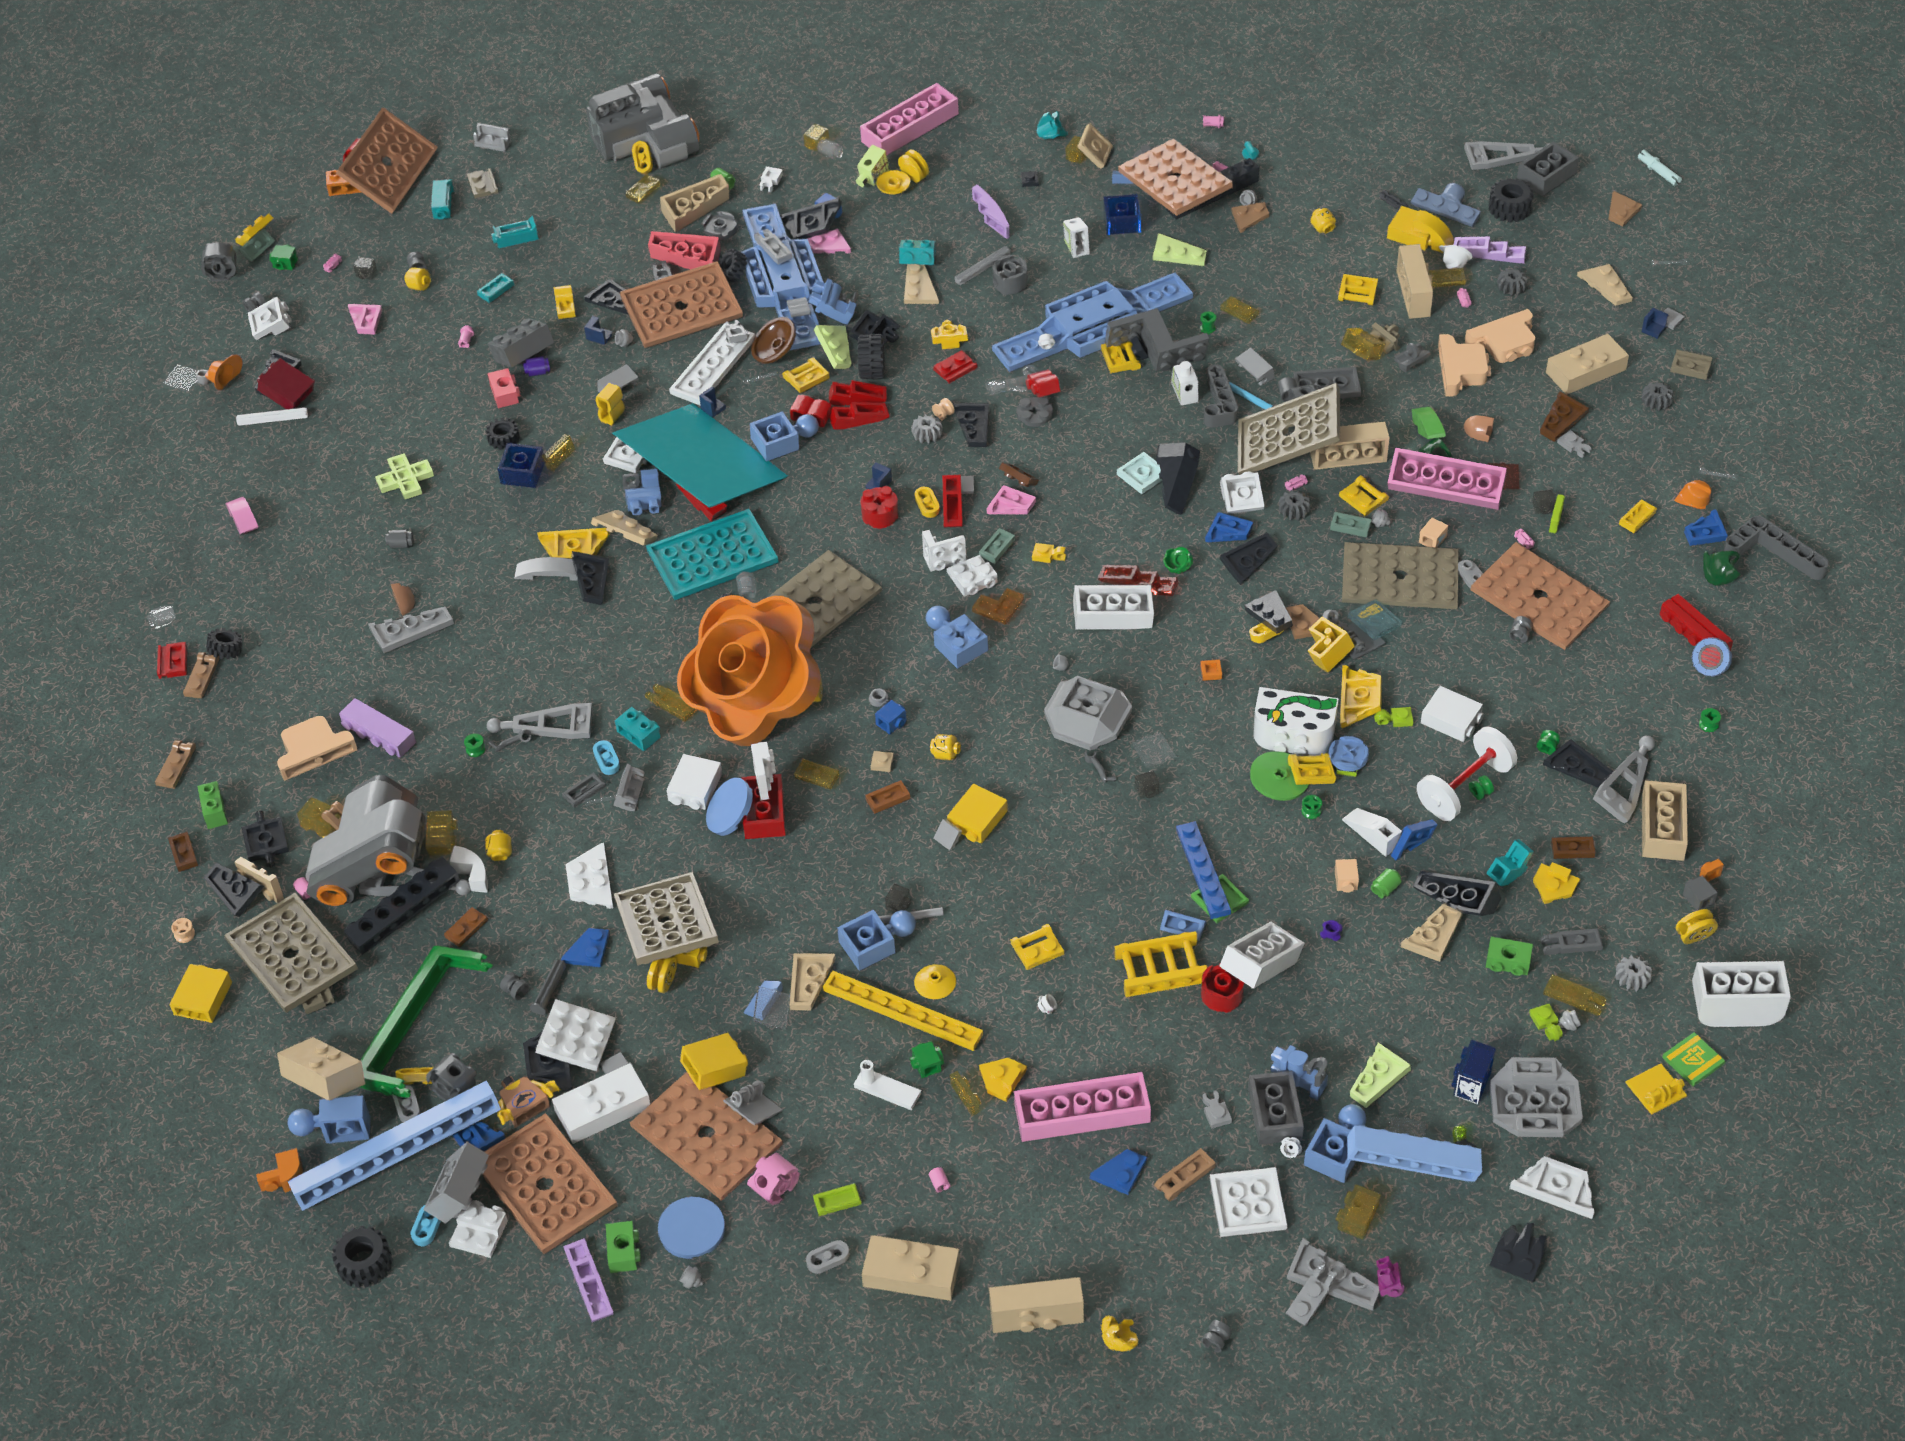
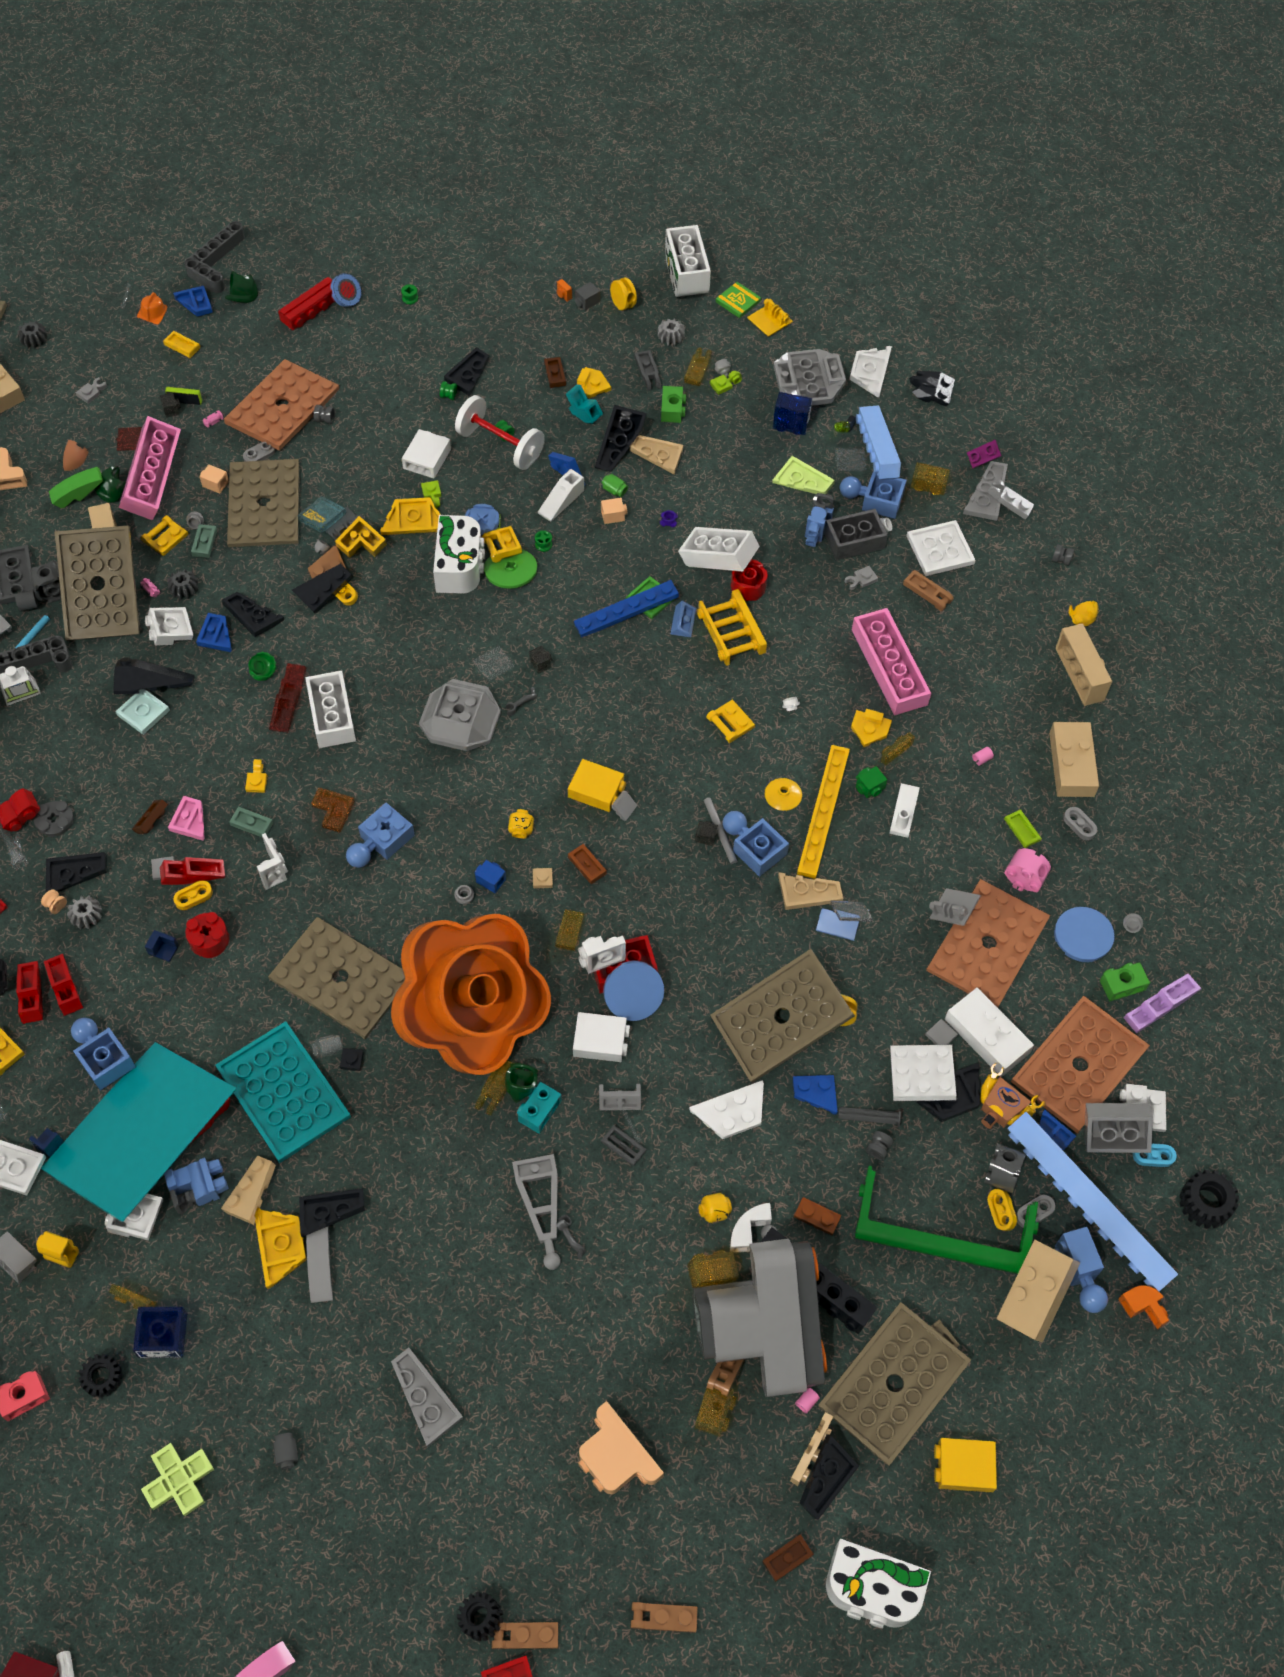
camera: 105 degrees left, 10 degrees up
(132, 898) = (875, 1585): none -> white brick
(183, 930) = (895, 1513): light nougat wheel -> none
(212, 805) = (721, 1542): bright green brick -> none
(265, 839) = (752, 1466): black plate -> none
(377, 728) = (578, 1387): lavender brick -> none
(403, 597) = (379, 1418): nougat brick -> none
(478, 742) = (585, 1276): green wheel -> none
(607, 758) = (579, 1131): medium azure plate -> none
(664, 711) = (520, 1082): none -> dark green piece
(713, 1061) = (922, 944): yellow brick -> none
(806, 405) = (57, 1033): red brick -> none
(972, 575) = (294, 837): white plate -> none
(1060, 663) = (396, 747): light grey hinge -> none
(1120, 1171) = (936, 633): blue wing -> none
(1211, 670) = (396, 628): orange plate -> none
(1562, 416) = (57, 398): reddish brown wing -> none
(1613, 801) = (505, 345): light grey plate -> none
(1664, 820) = (521, 315): tan brick -> none

